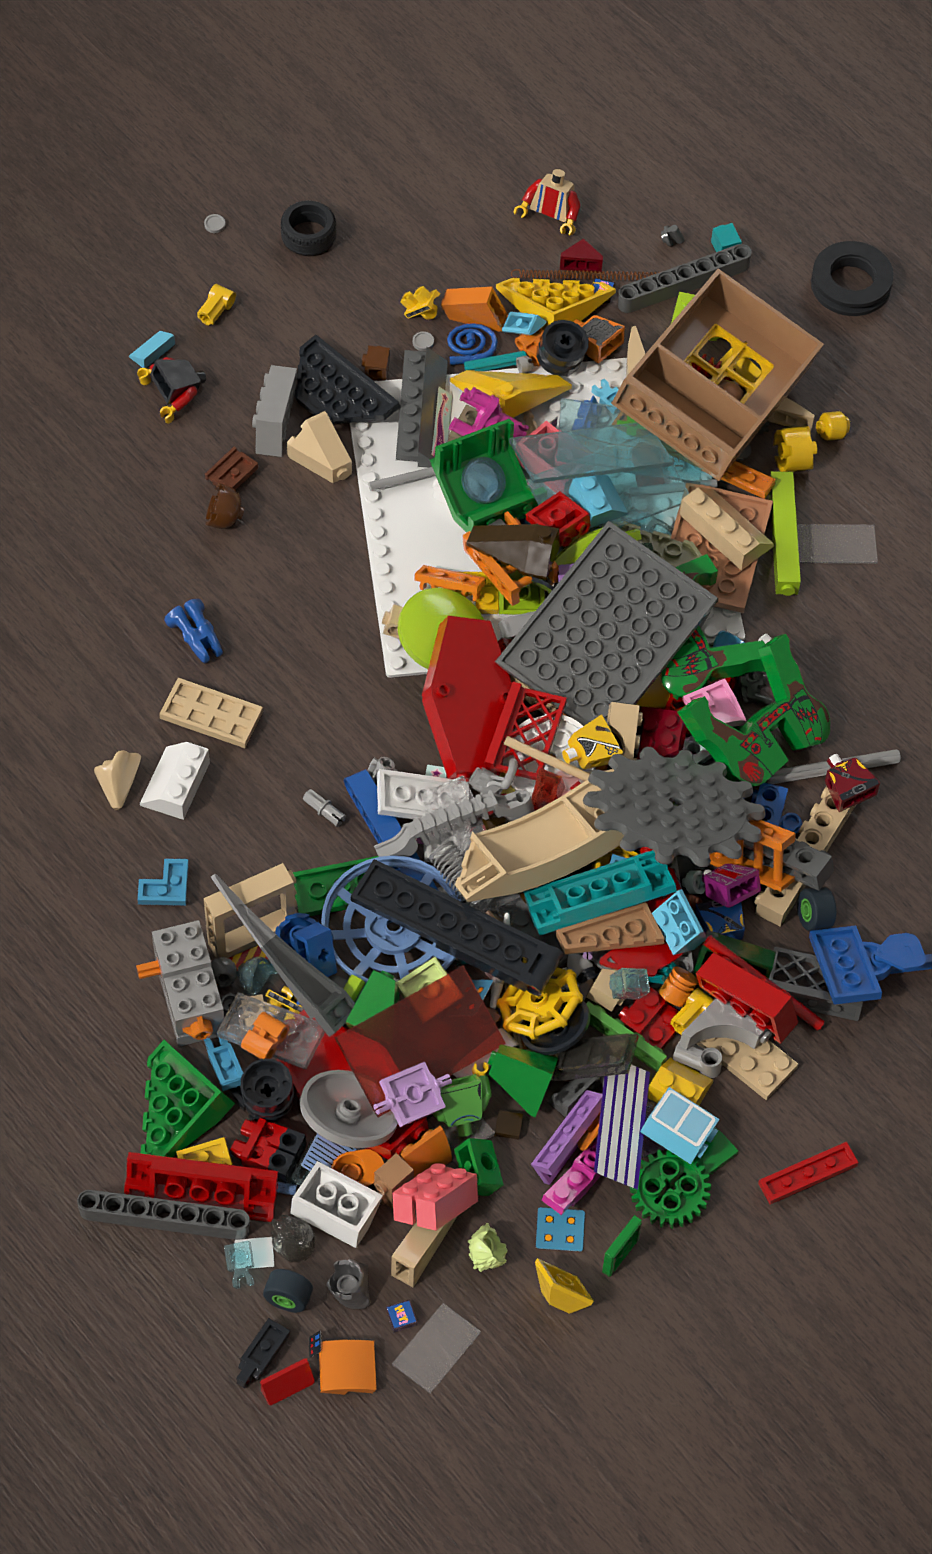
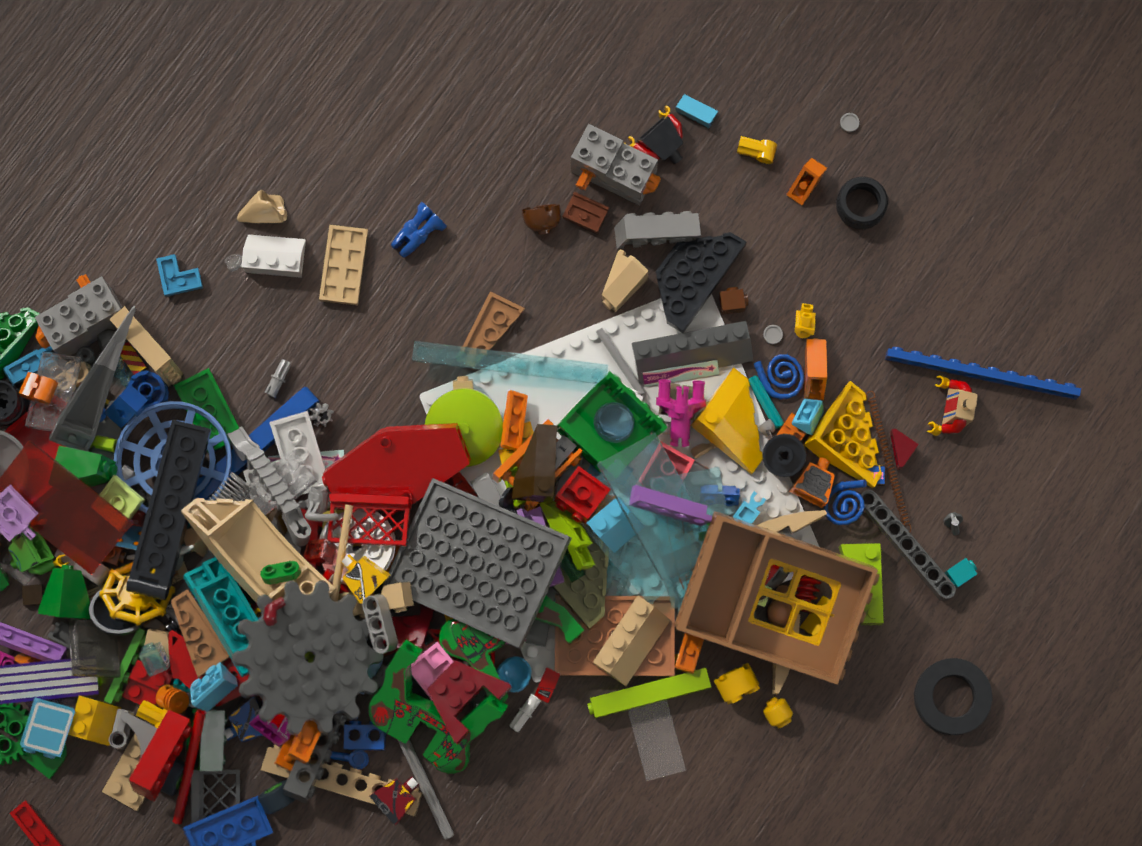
camera: 80 degrees right, 20 degrees up
(168, 822) = (233, 262): none -> clear piece
(191, 423) = (613, 165): none -> light grey piece
(267, 269) = (806, 181): none -> orange slope
(327, 585) = (492, 322): none -> medium nougat wing
(380, 574) = (508, 362): none -> clear light blue plate
(519, 180) = (991, 374): none -> blue plate
(566, 820) = (280, 572): none -> green plate
(596, 438) = (669, 505): none -> medium lavender fence
(618, 813) = (270, 611): none -> dark red arm
(630, 316) = (845, 507): none -> blue piece
(663, 732) = (376, 632): none -> light grey beam
(745, 683) = (456, 689): none -> dark red wing
(751, 621) = (547, 685): none -> red sticker

